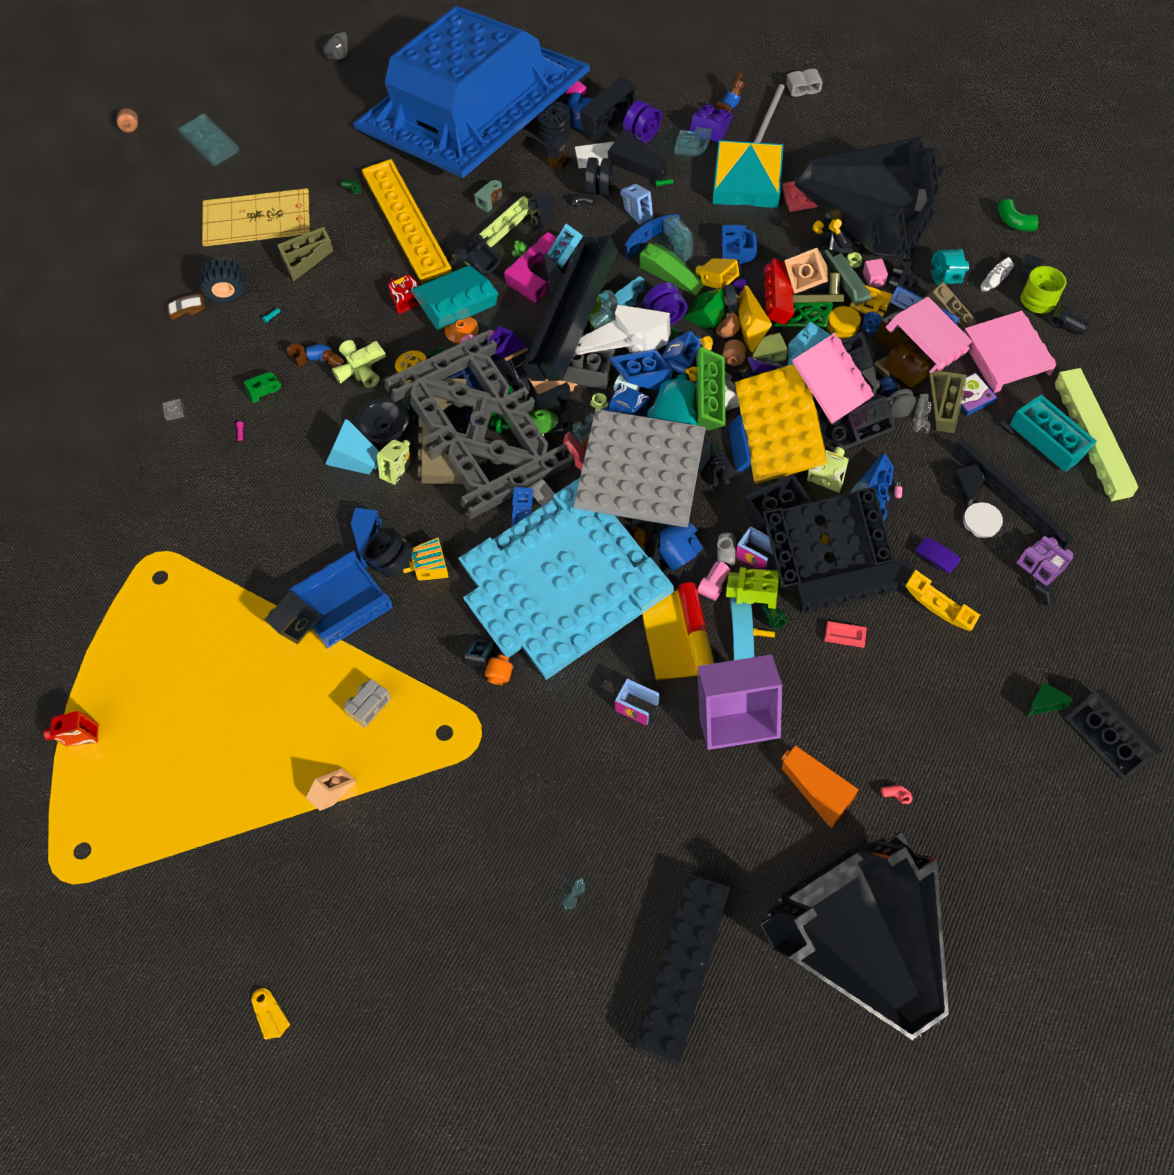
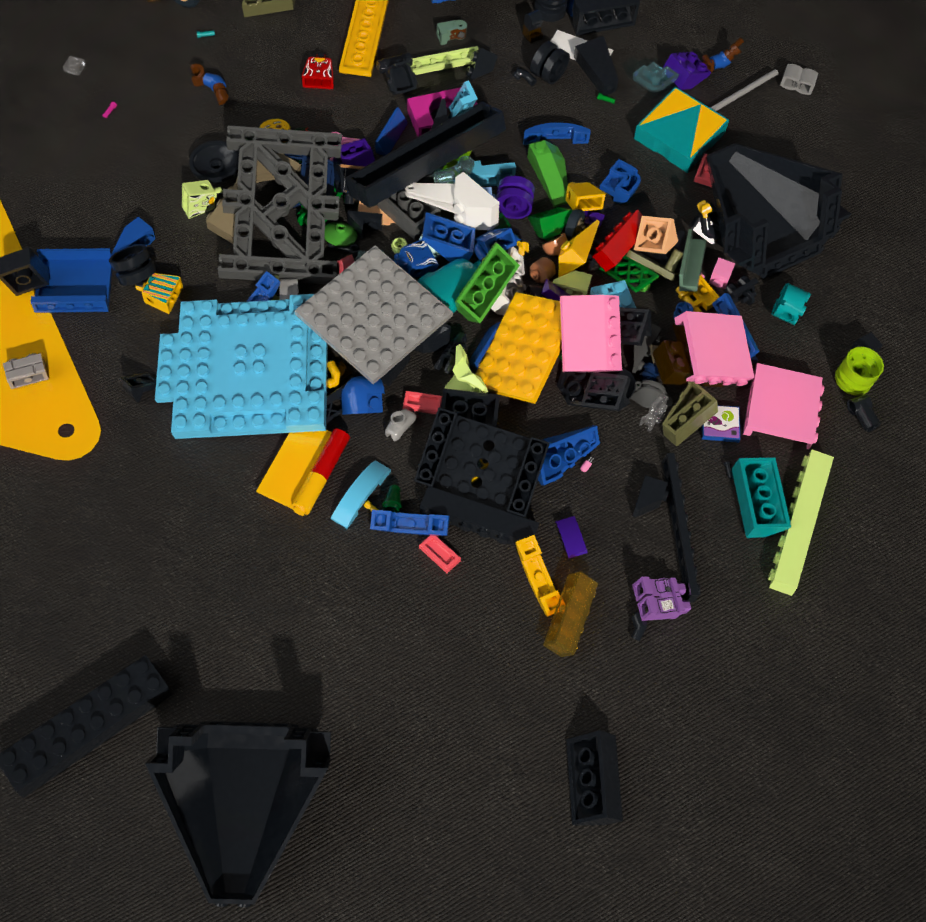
camera: 25 degrees right, 0 degrees up
(261, 386) = (151, 83): green leg -> none
(353, 451) = (172, 169): medium azure slope -> none
(359, 363) = (236, 105): yellowish green brick -> none
(455, 296) = (353, 97): teal slope -> none
(461, 328) = (343, 124): orange dish -> none
(498, 670) = (142, 407): orange head -> none
(511, 310) = (390, 132): none -> blue slope
(520, 248) = (439, 86): bright green plant -> none
(577, 890) = (50, 618): clear light blue piece -> none
(637, 203) = (566, 97): light blue torso -> none
(639, 691) = (227, 485): light blue piece -> none
(642, 121) = (625, 36): dark purple wheel -> none
(642, 540) = (335, 375): none -> yellow arm
(680, 237) = (577, 149): clear light blue brick -> none
(712, 585) = (363, 445): bright pink piece -> none
(728, 520) = (422, 402): none -> coral tile
(740, 701) = (291, 545): medium lavender container -> none
(748, 478) = (463, 377): none -> yellowish green piece
(750, 556) = (410, 432): piece -> none
(753, 586) = (392, 466): lime hips -> none
(806, 624) = (409, 523): none -> blue slope
(820, 786) = (312, 661): orange slope -> none
(831, 474) = (542, 414): yellowish green torso -> none
(843, 322) = (658, 298): yellow head -> none
(854, 259) = (713, 252): yellowish green plate -> none
(898, 792) = (372, 704): coral arm -> none
(944, 298) = (763, 335): dark tan slope -> none
(982, 520) = (638, 533): white tile -> none
(990, 616) = (570, 614): none -> clear yellow brick
(997, 275) = (832, 336): white hinge -> none
(1015, 219) = (890, 298): green cylinder -> none
(1048, 700) = (559, 714): dark green slope -> none

